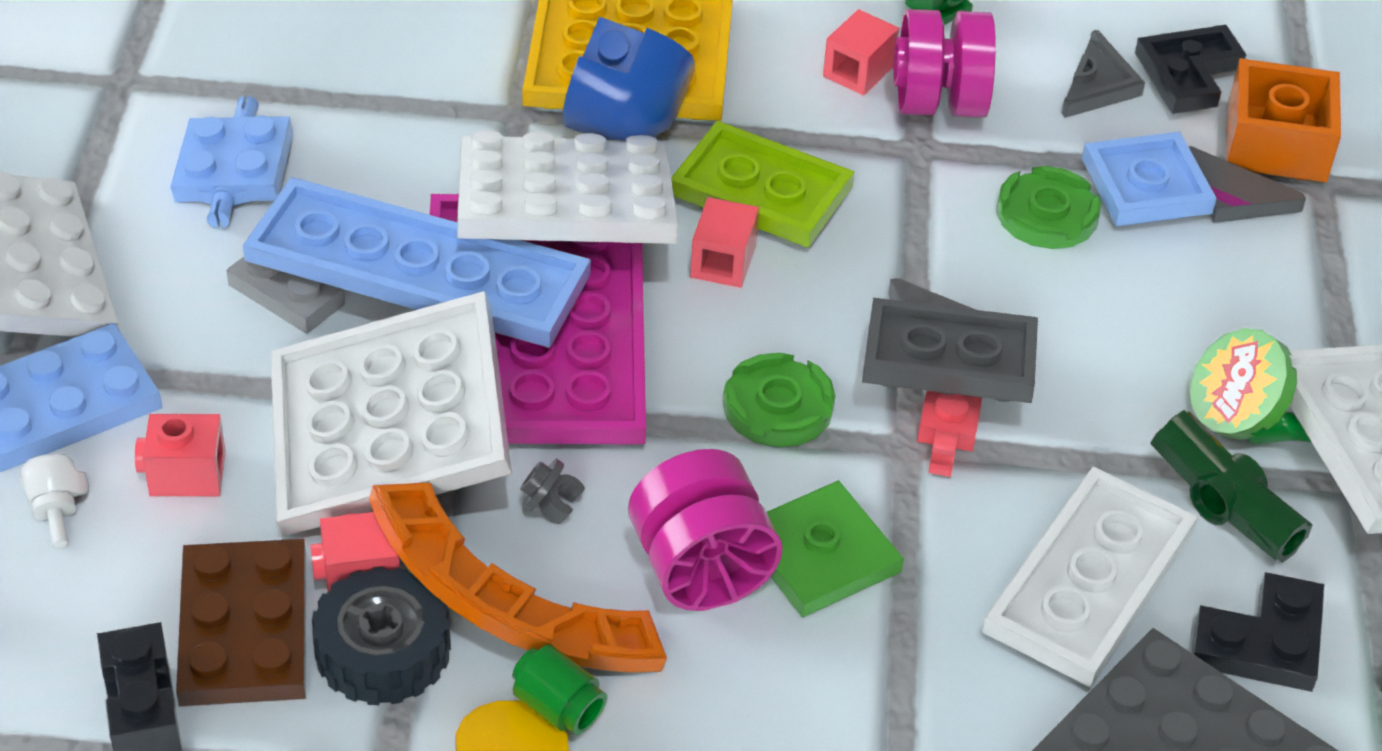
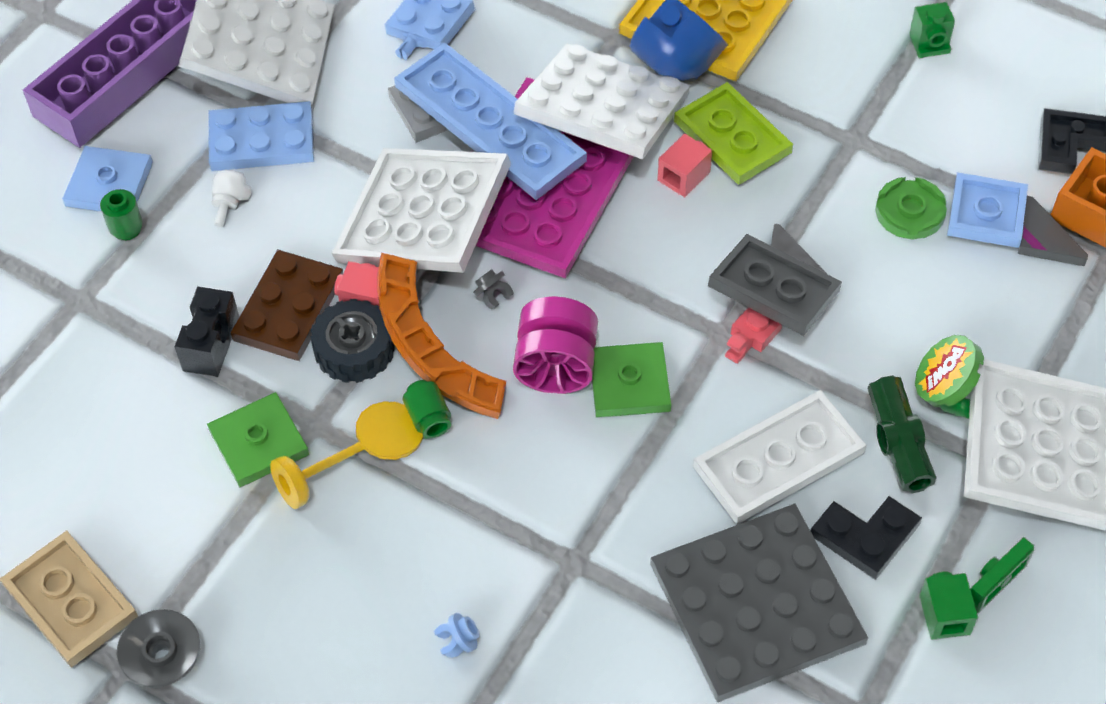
camera: 30 degrees right, 10 degrees up
(182, 455) = (304, 195): coral brick -> none
(778, 400) = (661, 278): bright green tile -> none
(860, 52) = (850, 61): coral brick -> none
(929, 61) = (882, 84): dark pink wheel -> none
(1101, 79) = (1004, 129): dark grey tile -> none

